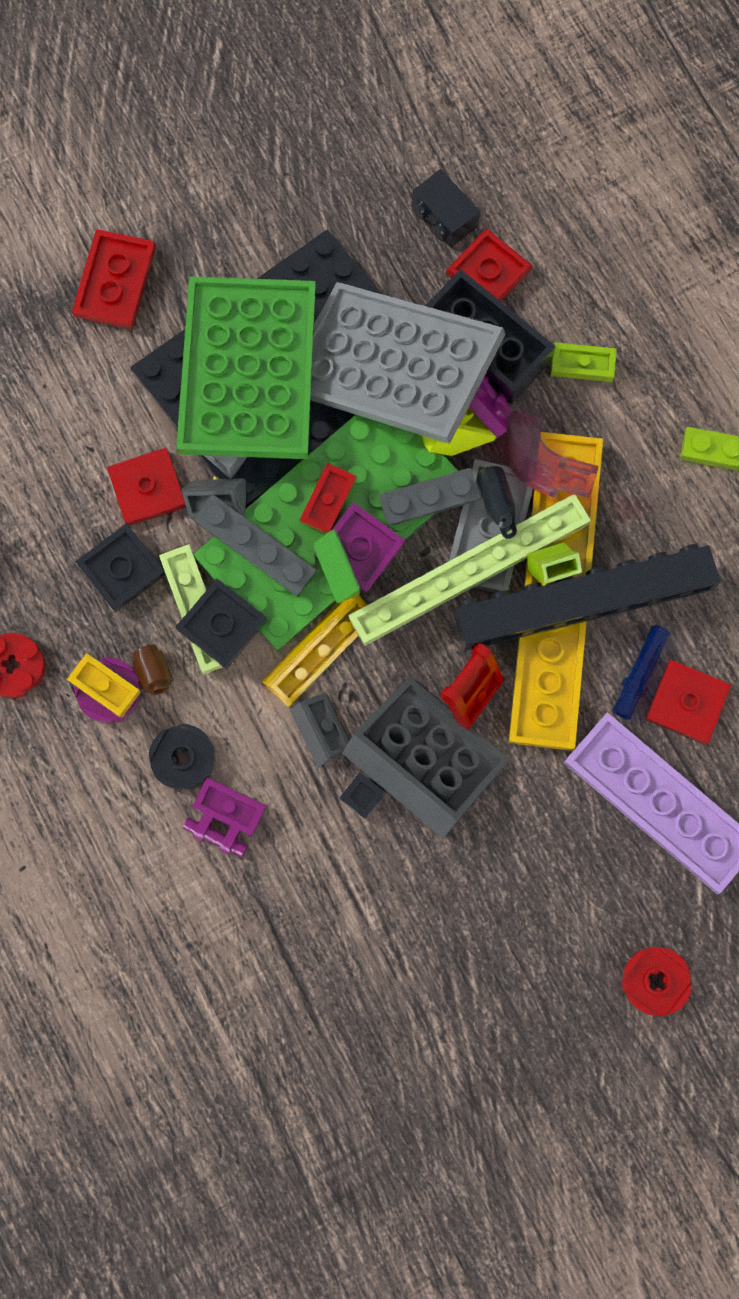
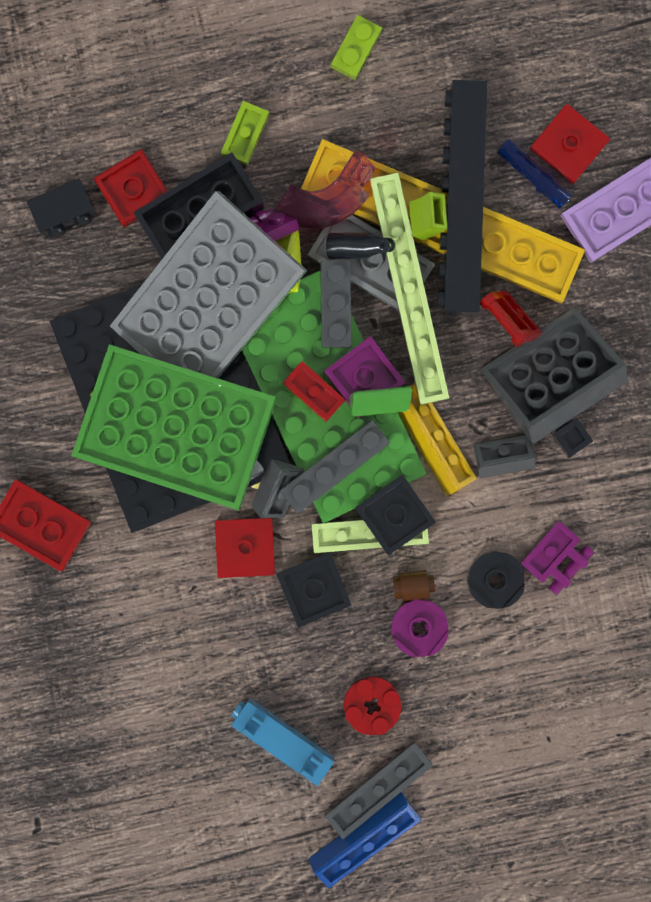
camera: 75 degrees left, 10 degrees up
(103, 685) = (420, 630): yellow plate -> none

